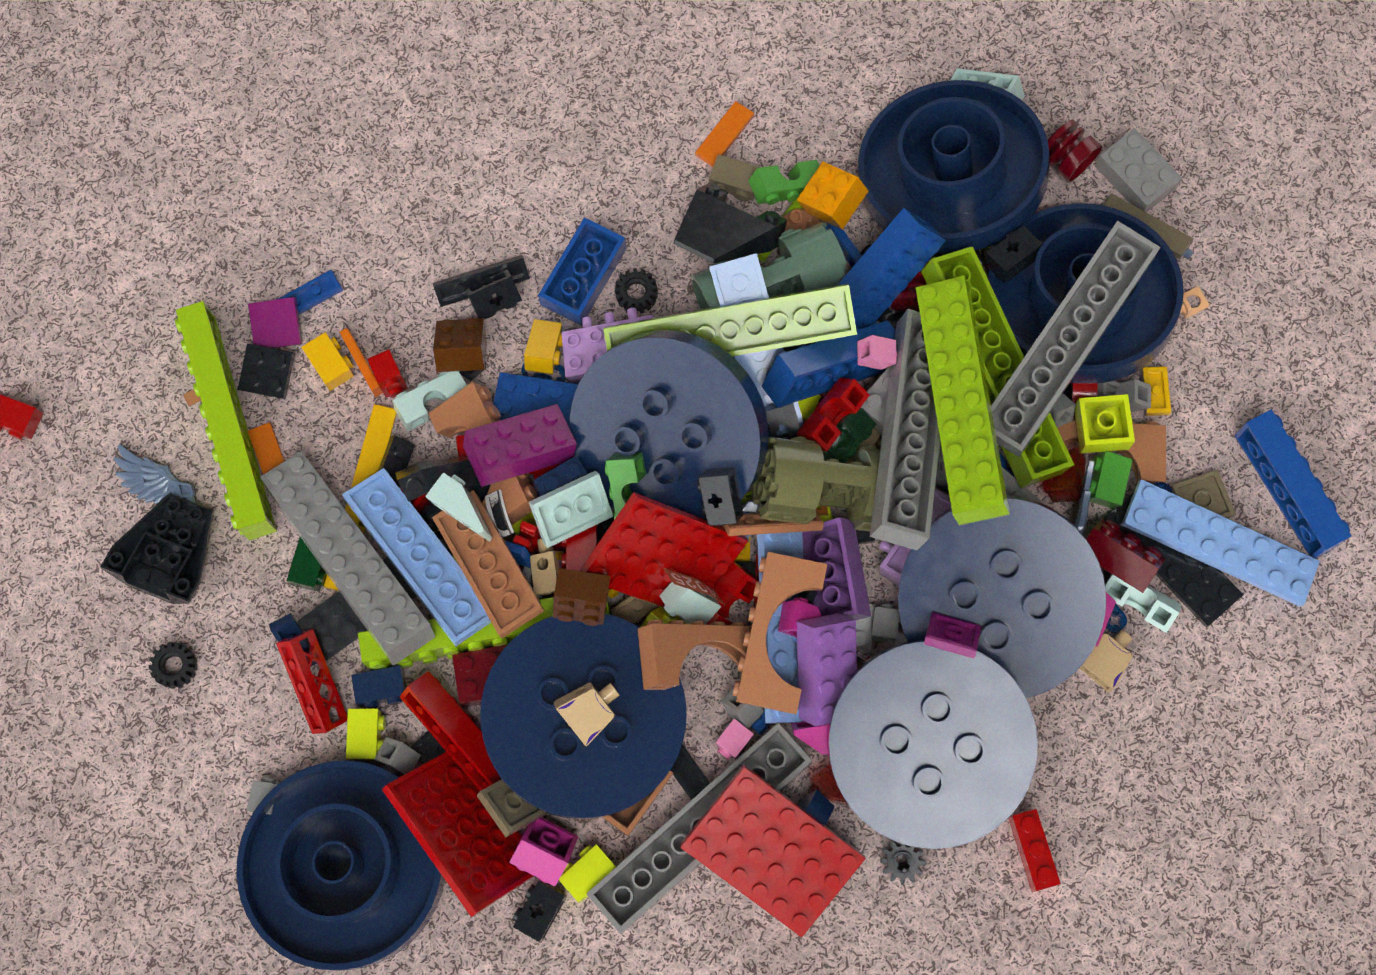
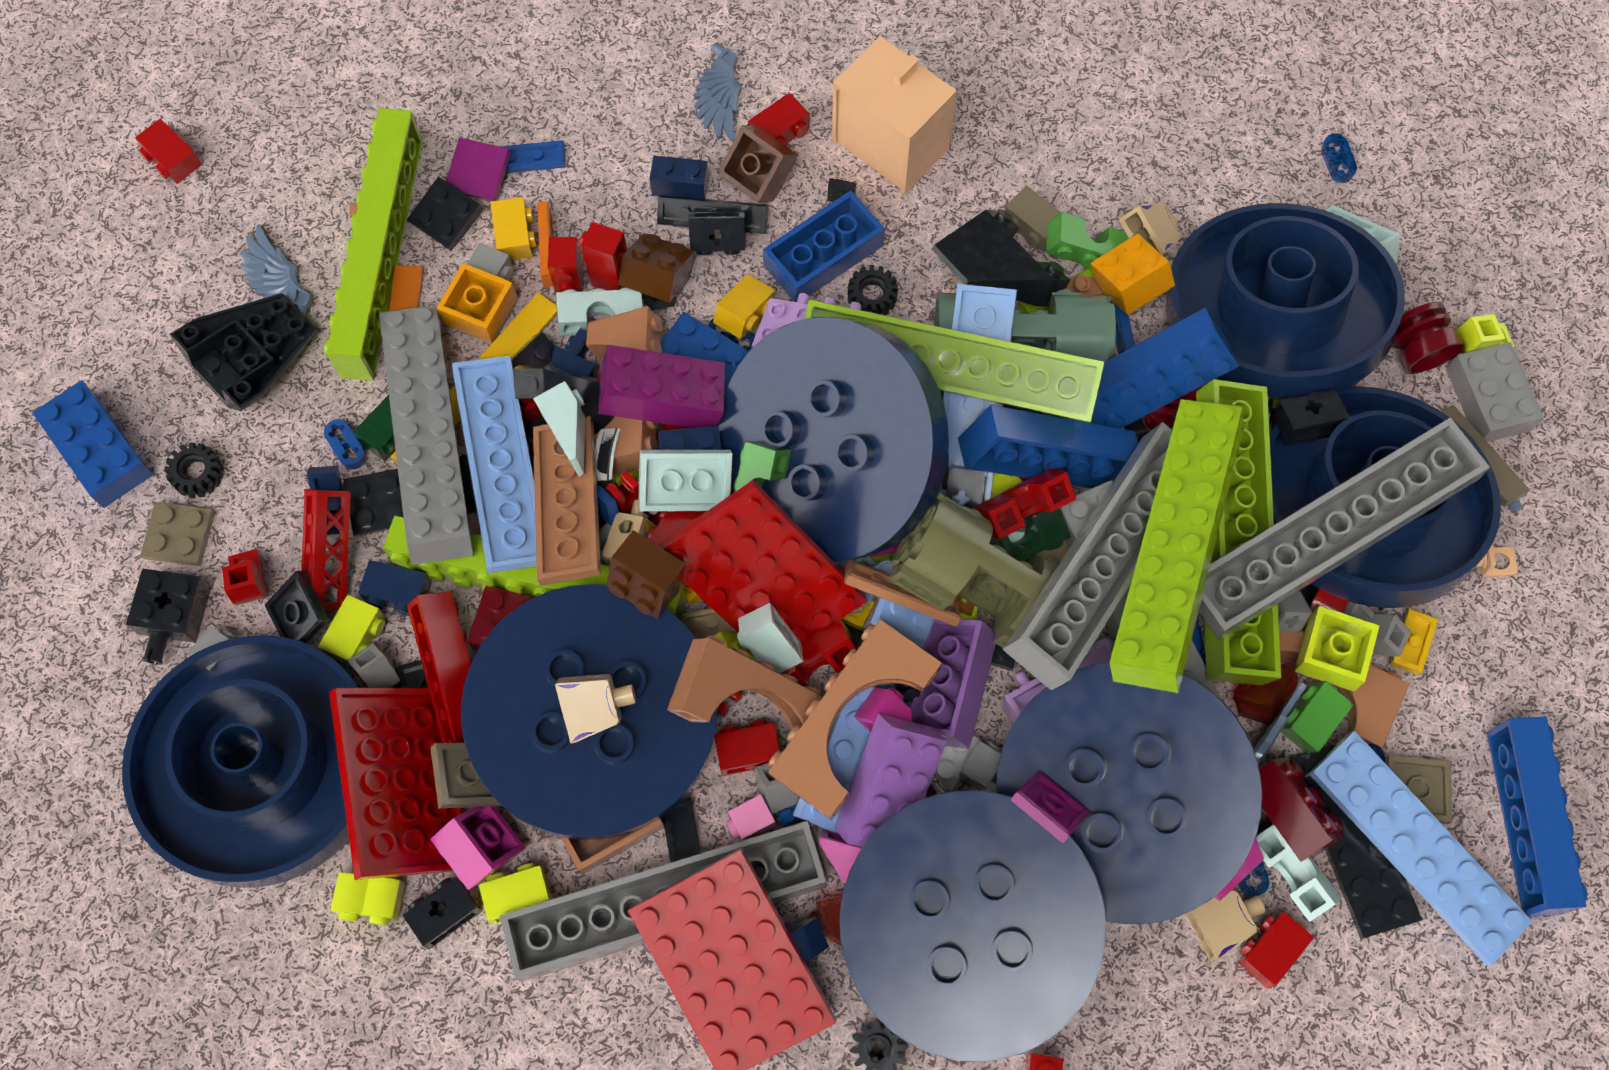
camera: 20 degrees right, 5 degrees down
(81, 680) = (92, 444): none -> blue brick
(185, 720) = (177, 534): none -> dark tan plate
(223, 788) = (167, 609): none -> black brick
(260, 730) = (245, 578): none -> red brick
(278, 596) = (350, 441): none -> blue beam
(313, 738) = (297, 609): none -> black tile
(325, 399) = (492, 261): none -> light grey brick
(331, 434) = (477, 303): none -> light orange brick
(417, 355) = (603, 255): none -> red brick
(428, 449) = (573, 357): none -> dark blue brick
(437, 176) = (719, 93): none -> sand blue animal
(441, 262) = (679, 177): none -> dark blue brick
(484, 926) = (371, 898): none -> neon yellow brick
(499, 183) = (783, 119): none -> red brick
(499, 225) = (757, 163): none -> reddish brown brick
(573, 218) = (838, 188): none -> black plate
(590, 141) = (893, 113): none -> light nougat piece
(691, 583) = (780, 619): nougat sticker -> none
(707, 688) = (745, 748): none -> red brick
(716, 485) = (854, 534): black brick -> none
(724, 133) = (1045, 170): orange tile -> none
(830, 147) = (1153, 224): none -> tan torso
(876, 352) = (1105, 454): bright pink brick -> none
(949, 23) = (1343, 157): none -> clear blue beam
(1112, 129) = (1483, 332): none -> neon yellow brick
(1150, 662) = (1274, 949): none -> red brick

